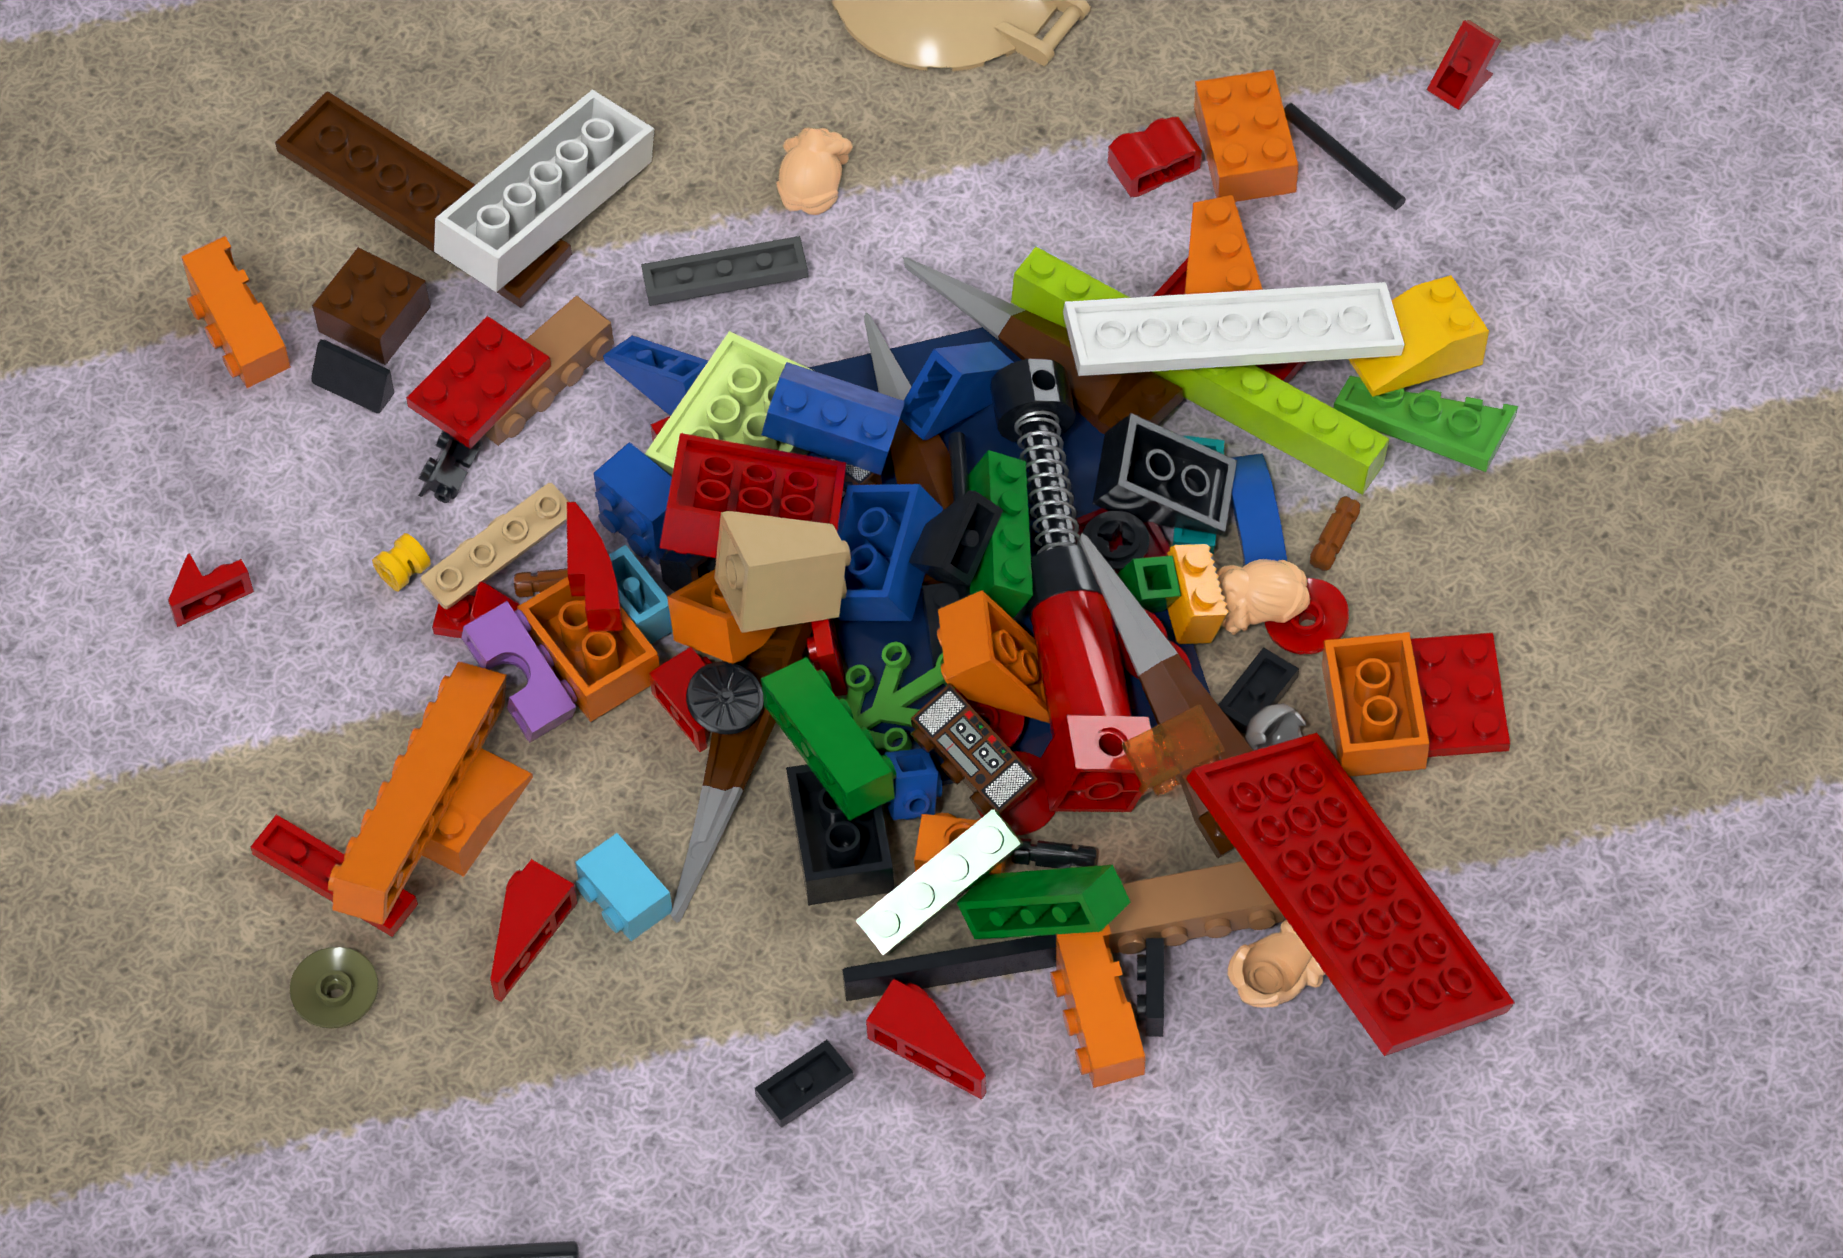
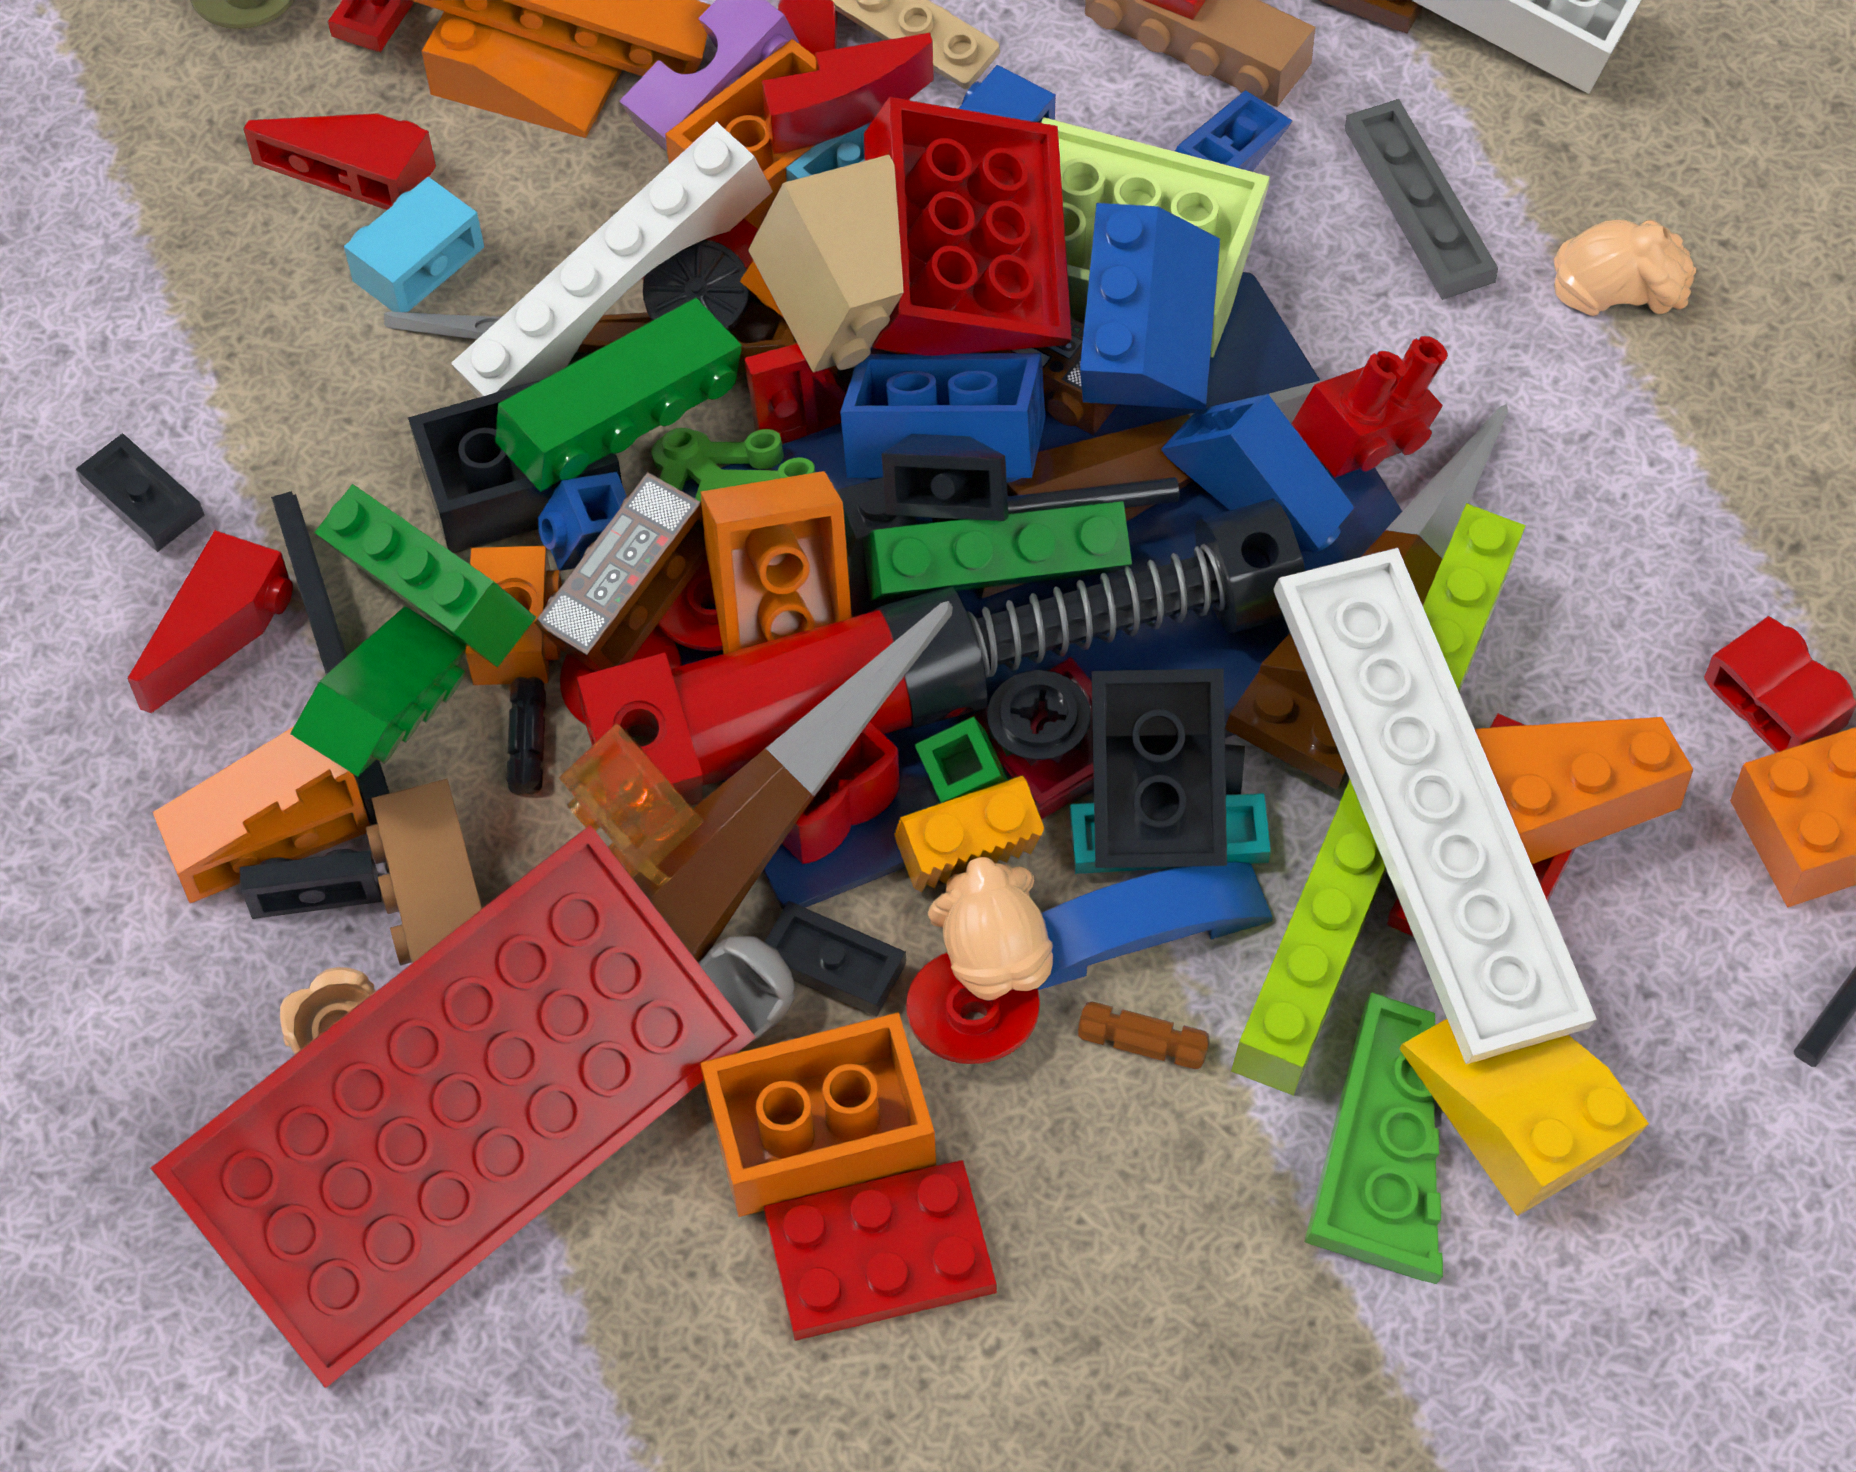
camera: 80 degrees right, 0 degrees up
(729, 774) = (690, 200): none -> white arch
(910, 316) = (1373, 409): none -> red brick

